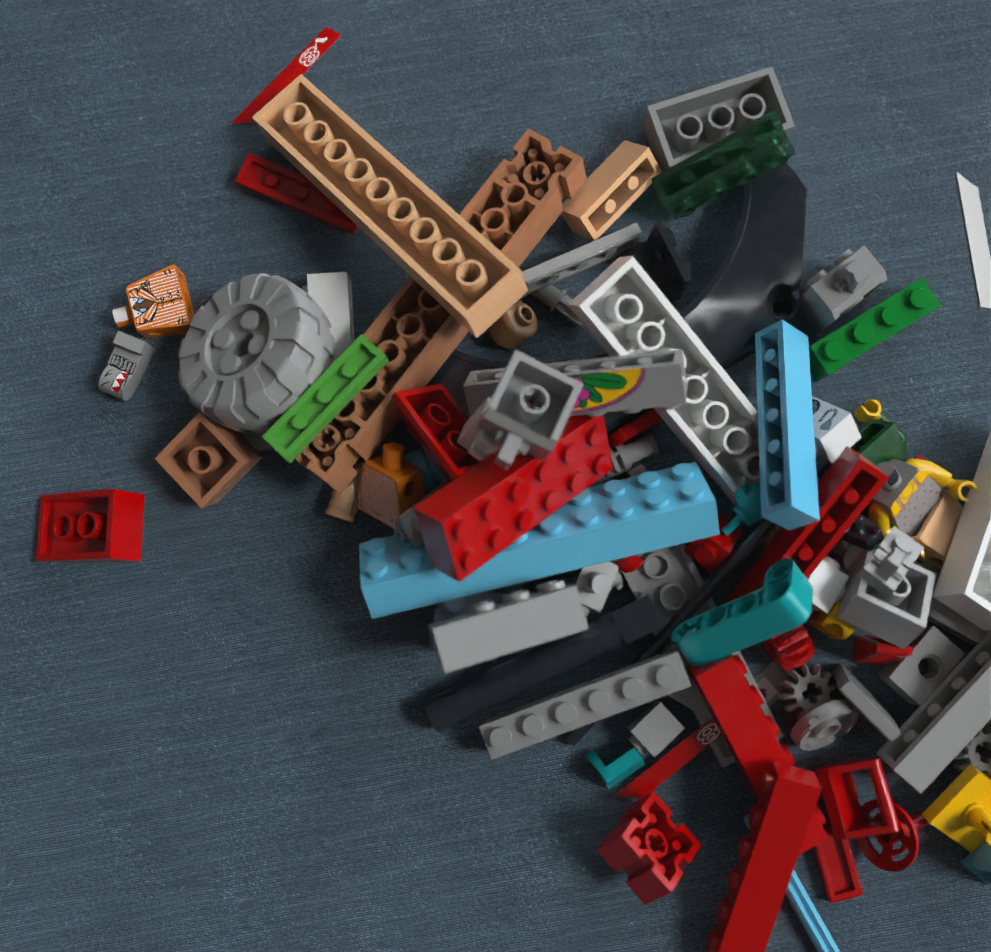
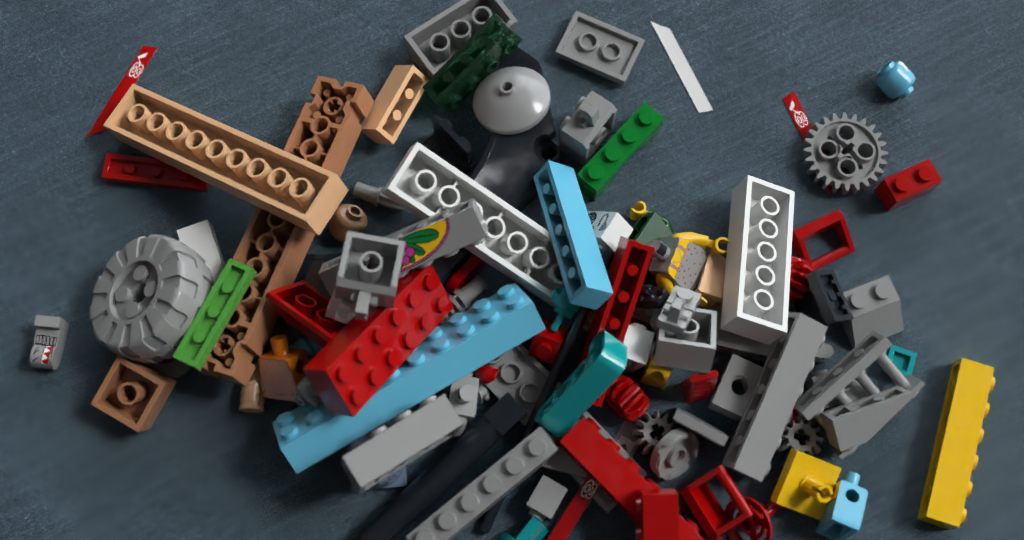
camera: 20 degrees left, 10 degrees down
(90, 527) = (50, 476): red slope -> none
(157, 305) = (63, 288): orange torso -> none
(581, 258) = (383, 161): light grey tile -> none
(756, 242) = (513, 109): none -> light grey dish
(884, 189) = (599, 48): none -> light grey plate

